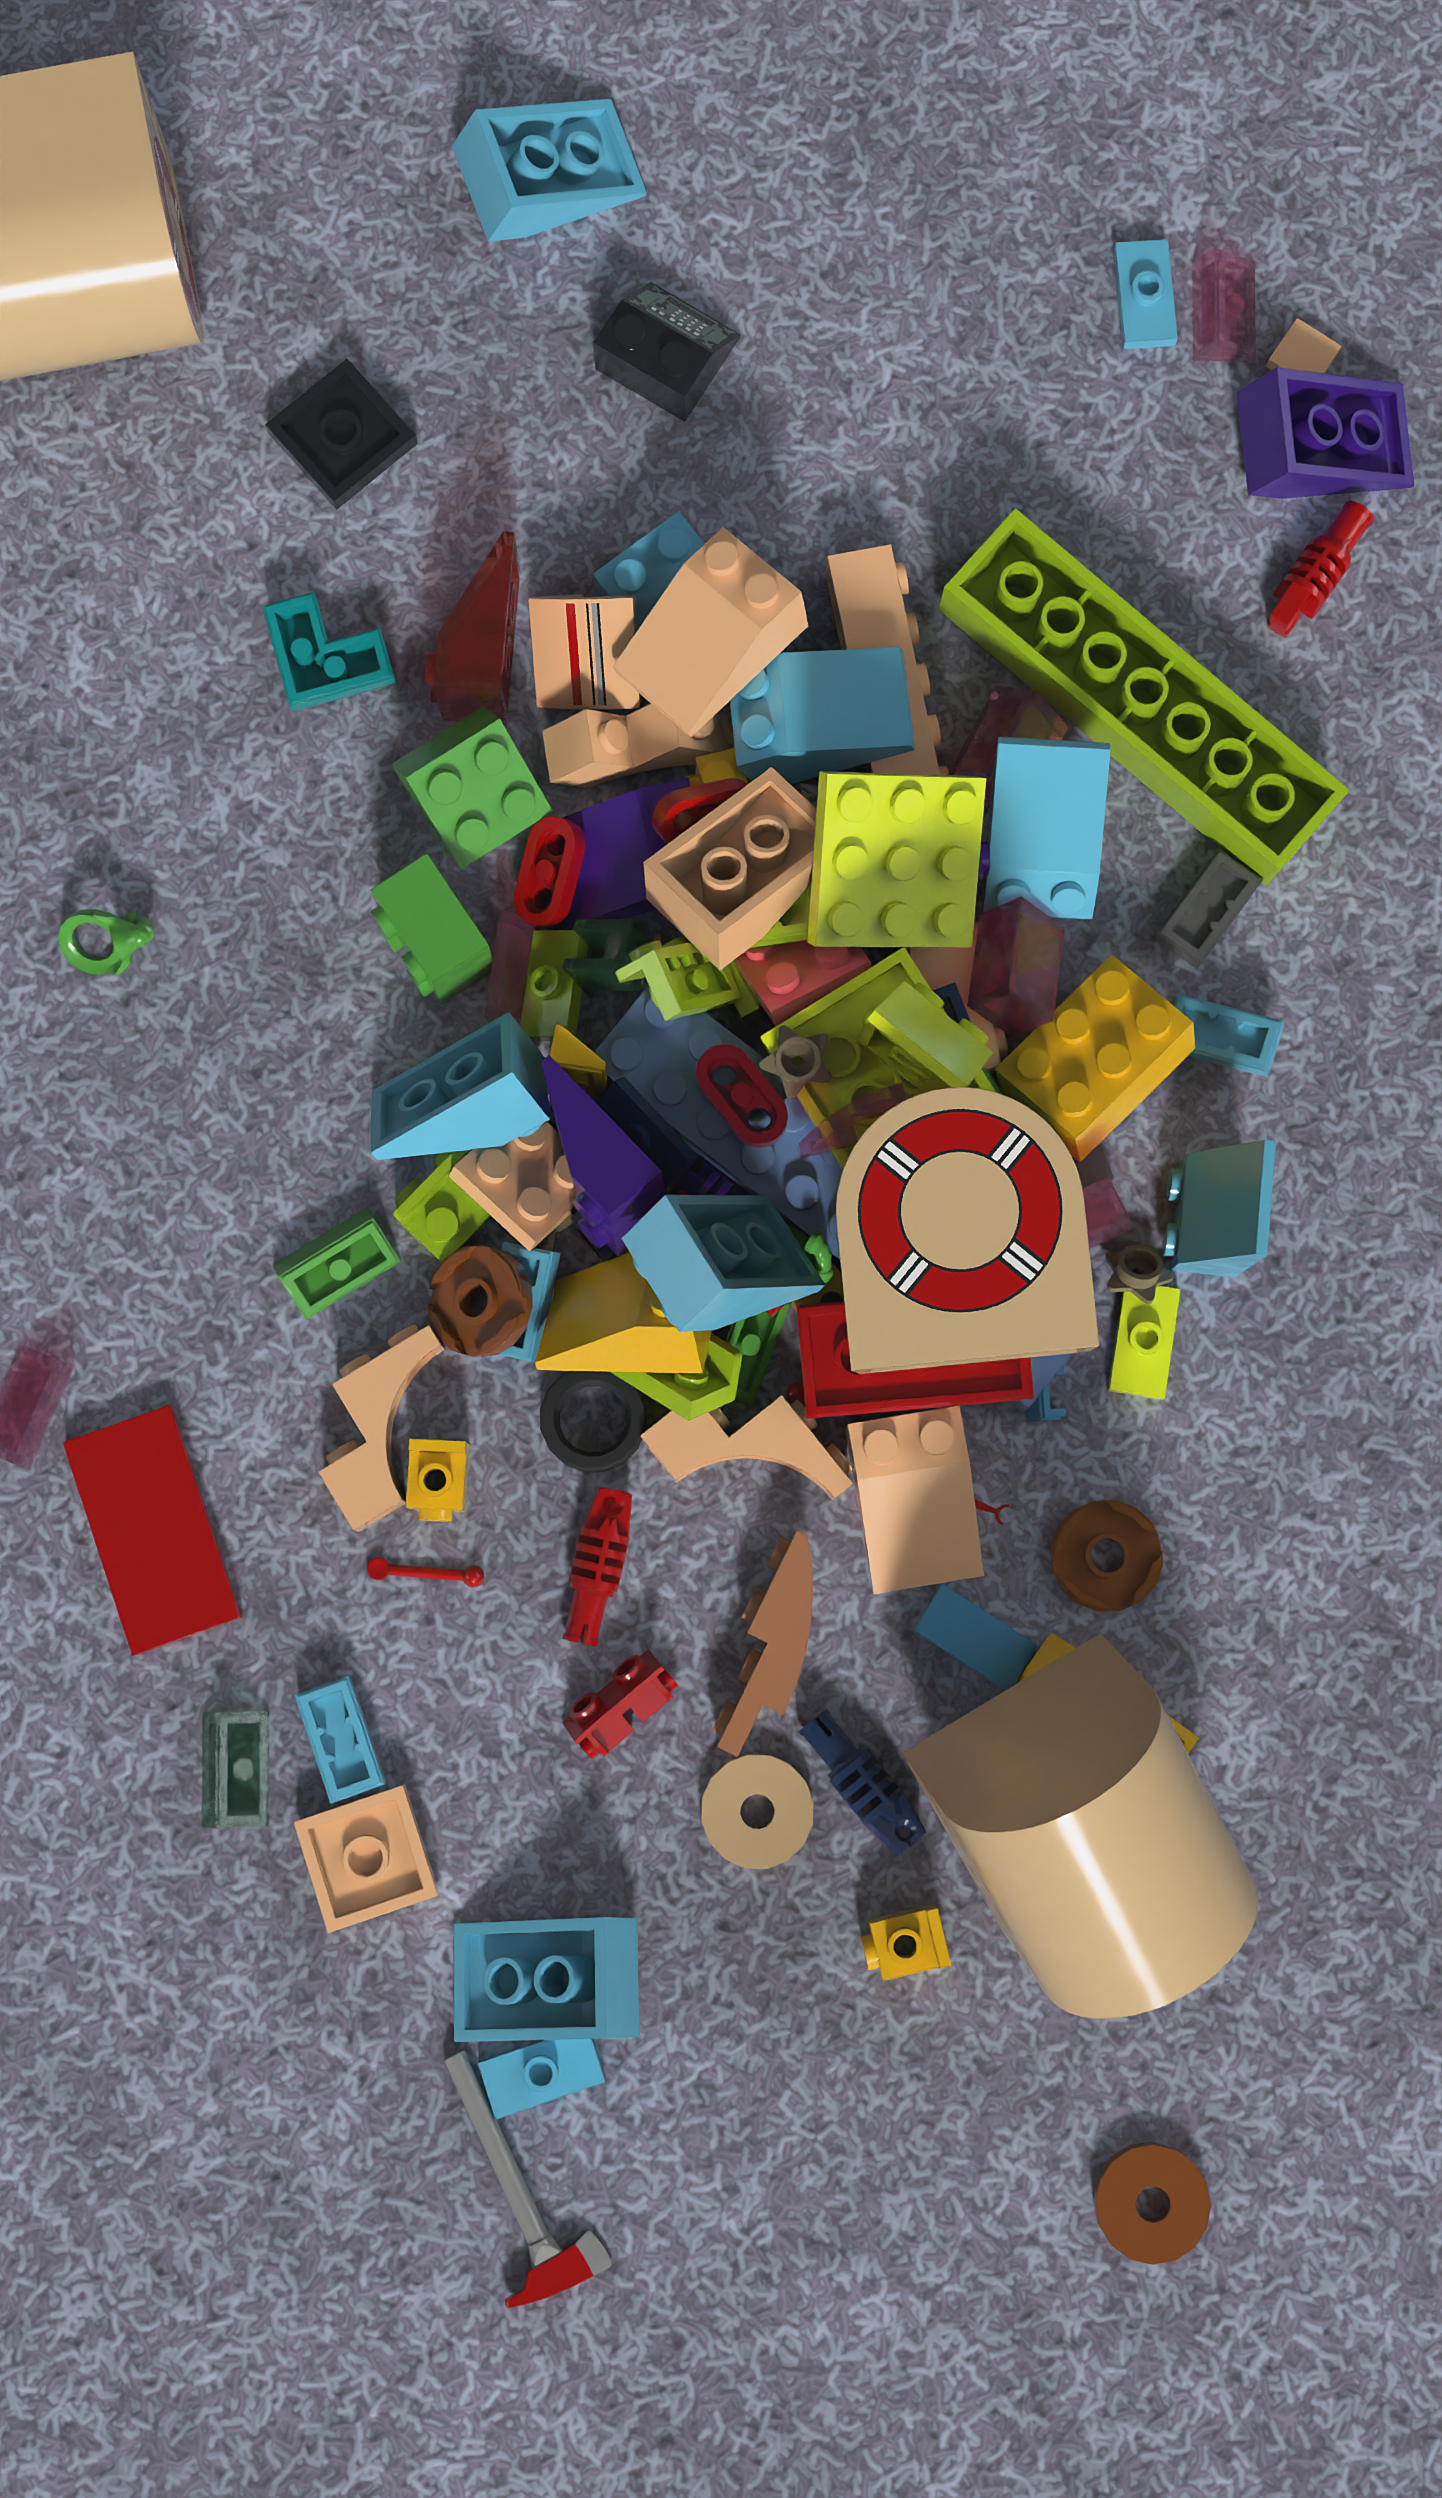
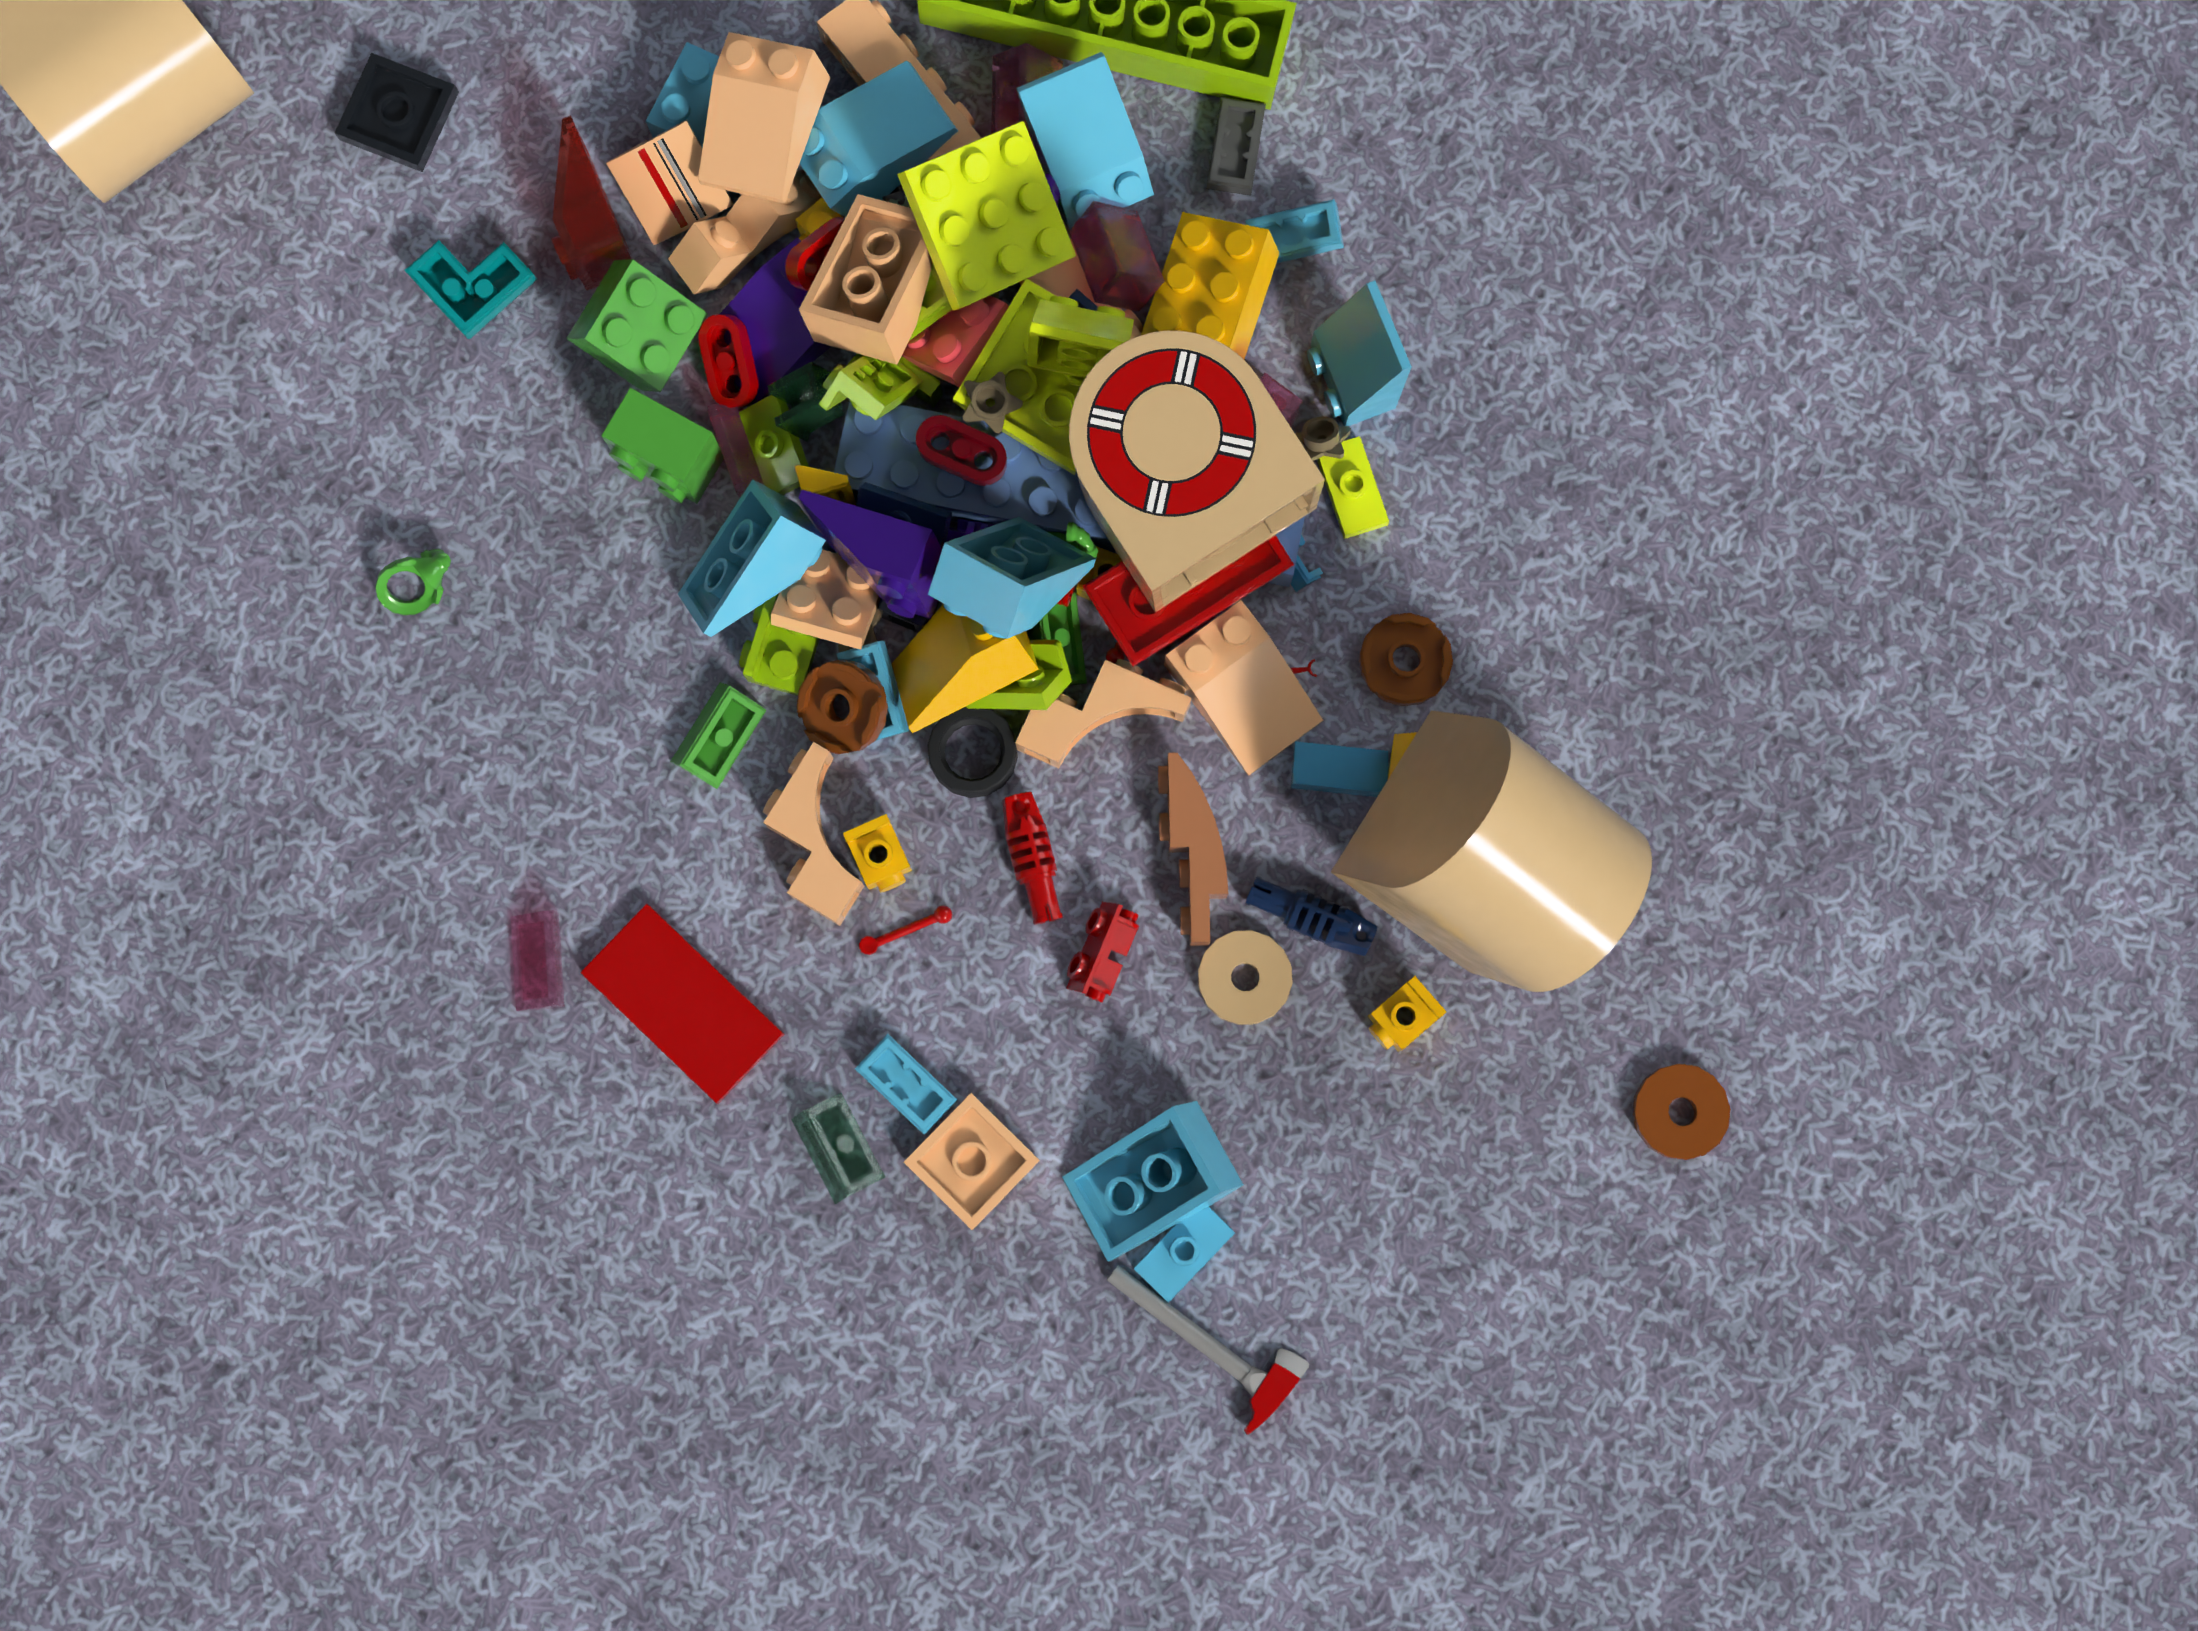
camera: 25 degrees left, 0 degrees up
(838, 1129) = (1047, 435): slope -> none

